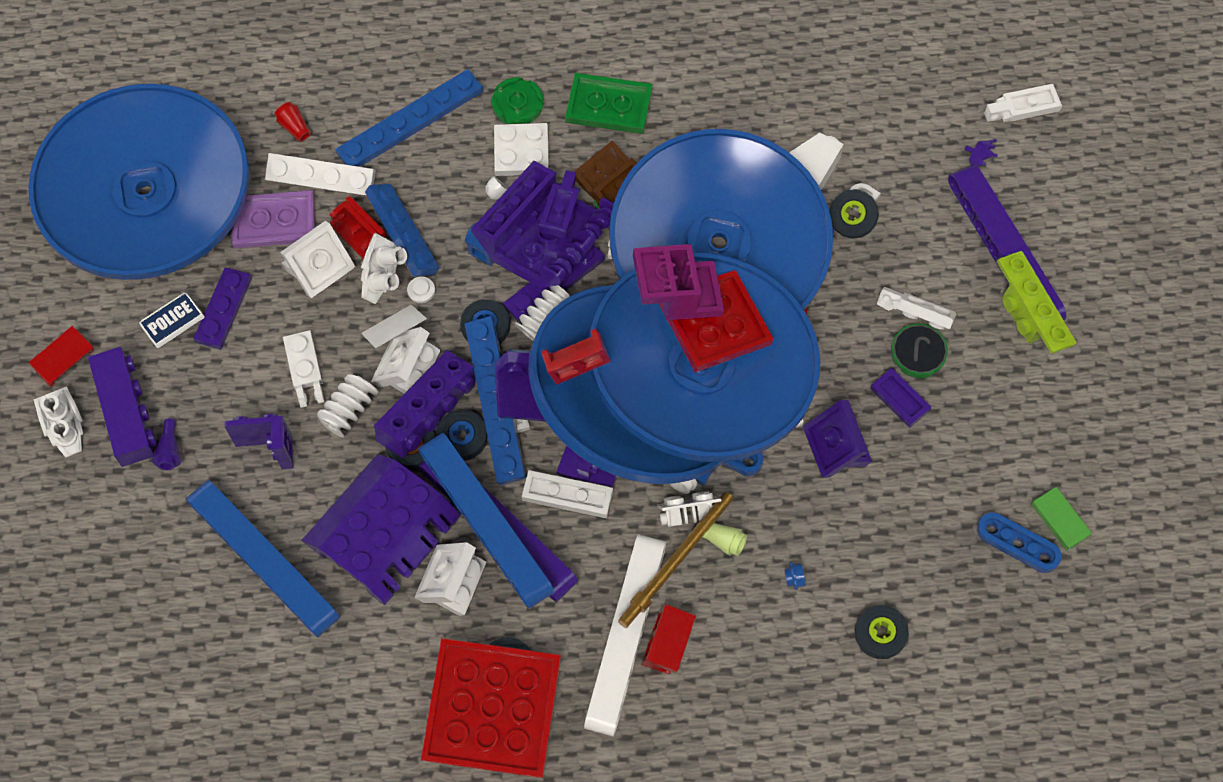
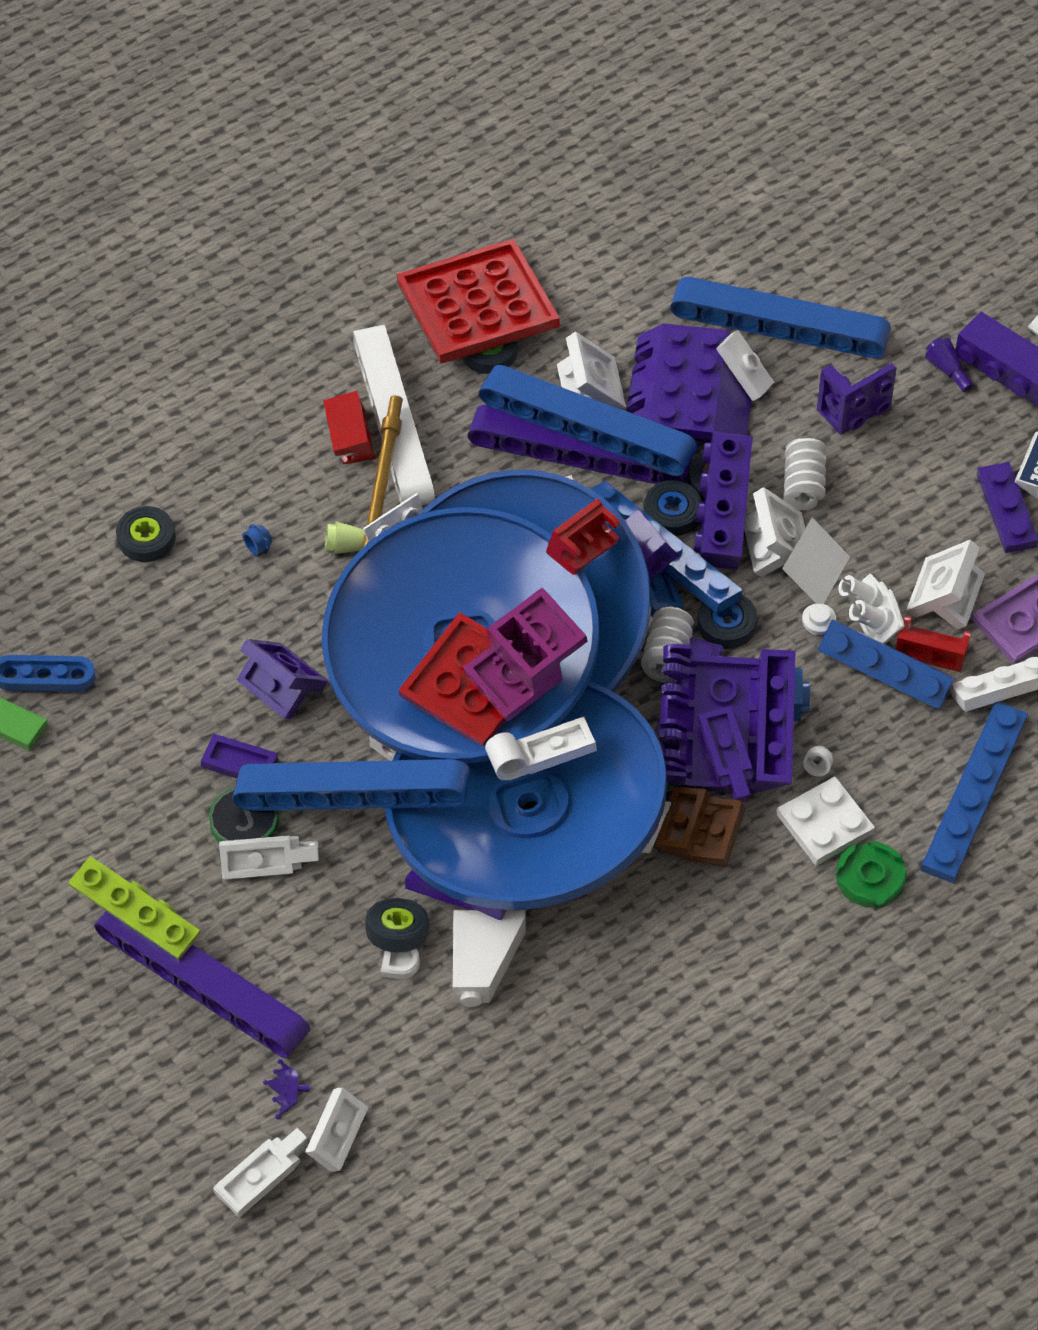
camera: 150 degrees right, 10 degrees down
(303, 365) = (878, 493): white hinge -> none
(325, 516) = (745, 365): none -> white plate
(609, 103) = (762, 919): green plate -> none
(704, 240) = (539, 751): none -> white plate
(842, 301) = (351, 785): none -> blue beam
(965, 103) = (336, 1129): none -> white plate

